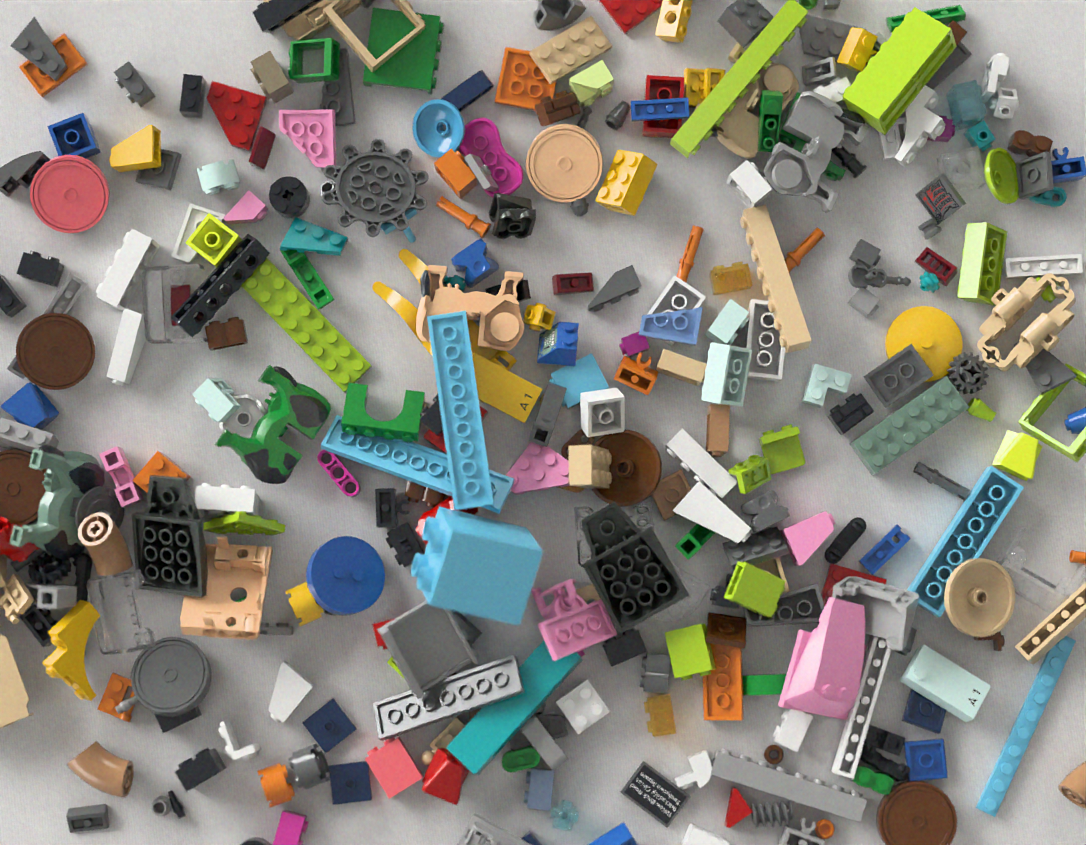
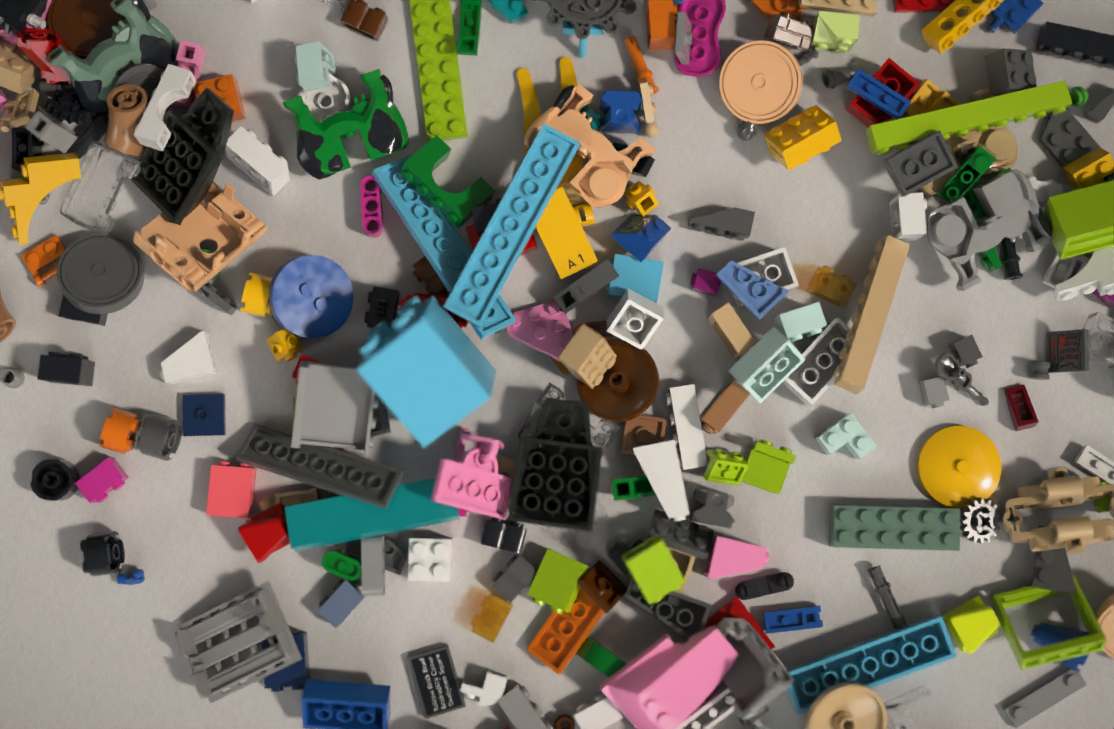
camera: 35 degrees right, 0 degrees up
(122, 491) = (174, 85): none -> white arch
(126, 704) = (45, 269): light grey piece -> none
(177, 807) = (25, 389): black piece -> none
(233, 748) = (108, 371): white bracket -> none
(244, 525) = (259, 191): lime plate -> none
(350, 782) = (185, 477): dark blue plate -> none
(352, 627) = (284, 345): none -> yellow brick
(387, 508) = (390, 266): black brick -> none
(505, 258) = (650, 128): none -> tan plate
(512, 216) = (681, 95): pearl dark grey piece -> none
(564, 823) = (337, 644): clear light blue brick -> none
(572, 283) = (691, 191): dark red slope -> none
(636, 374) = (689, 308): orange brick -> none
(686, 261) = (804, 245): orange pin -> none
(729, 139) = (921, 163): none -> dark grey tile
(794, 258) = (900, 309): orange pin -> none
(819, 72) = (1042, 165): light grey slope -> none
(850, 413) = (850, 479): black brick -> none
(898, 375) = (917, 477): dark grey plate -> none
(929, 282) = (1004, 416): teal plant -> none
(980, 409) = (967, 560): lime cone -> none
(981, 263) = (1063, 433): lime slope -> none

